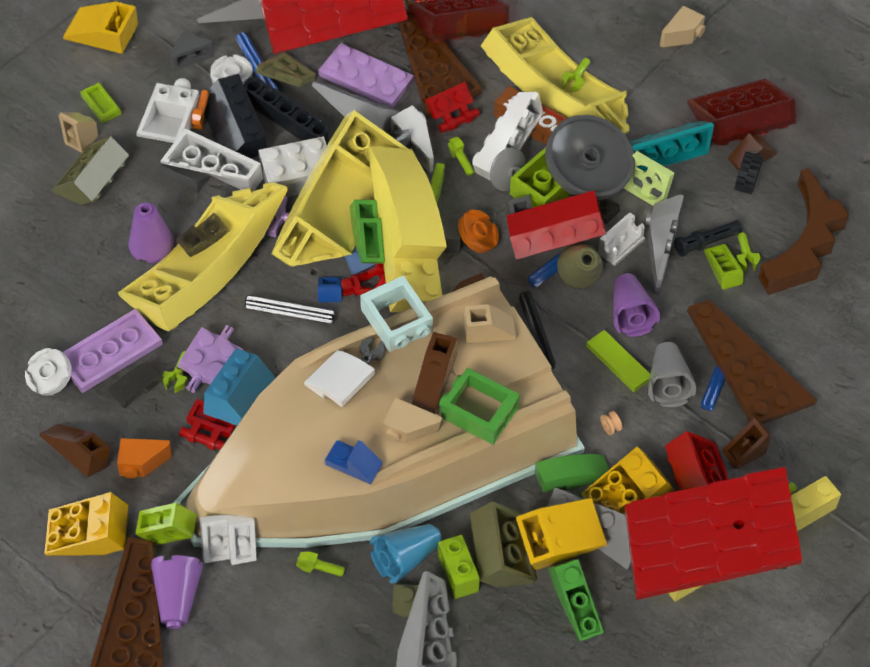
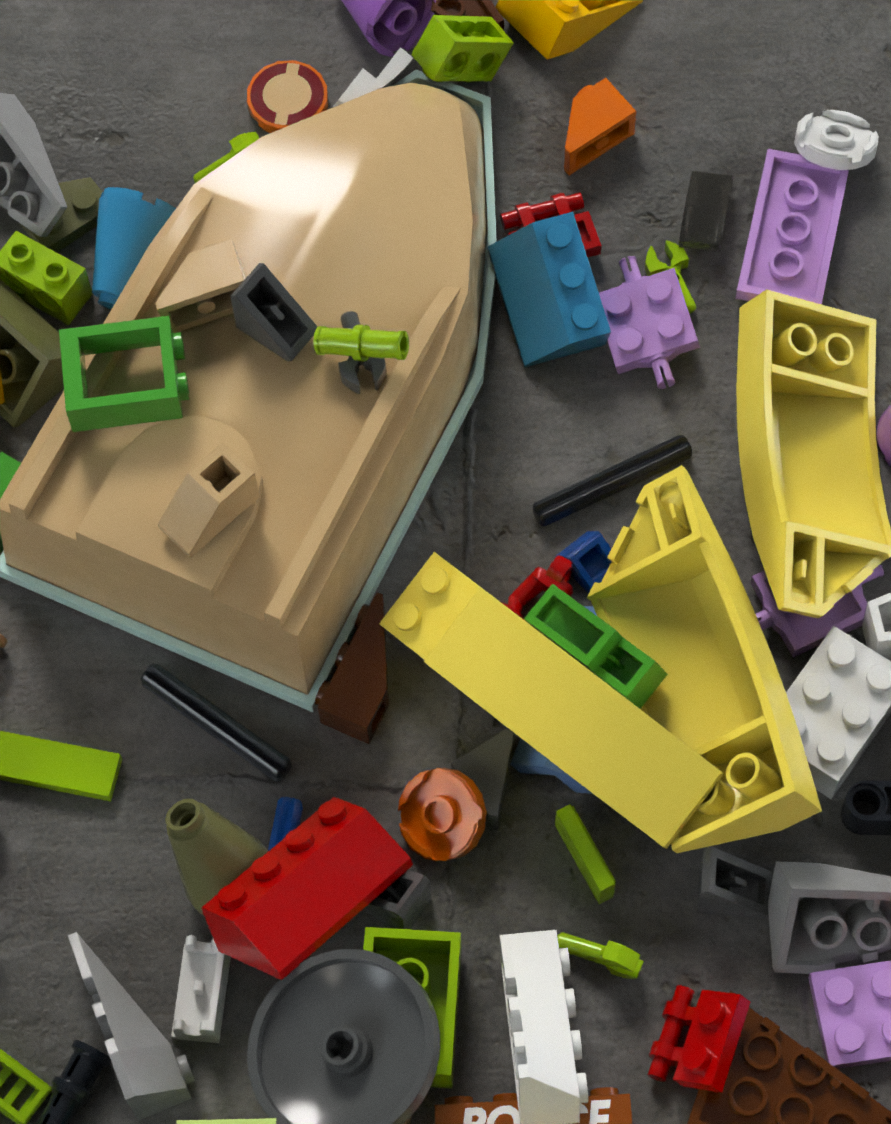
camera: 145 degrees right, 10 degrees up
(79, 447) = (690, 73): reddish brown slope -> none
(201, 237) = (849, 485): clear smoke slope -> none
(262, 582) = (286, 94): none -> tile
(340, 377) = (367, 287): white slope -> none
(354, 461) = (238, 197): blue slope -> none
(366, 348) = (361, 342): none -> lime pin
(387, 295) = (384, 472): light aqua window -> none
(393, 385) = (271, 314): none -> dark grey slope
(420, 140) = (713, 934): white slope -> none
(435, 371) = (227, 373): reddish brown slope -> none
(505, 166) = (487, 967): light grey dish -> none
(633, 307) = (92, 864): medium lavender cone -> none

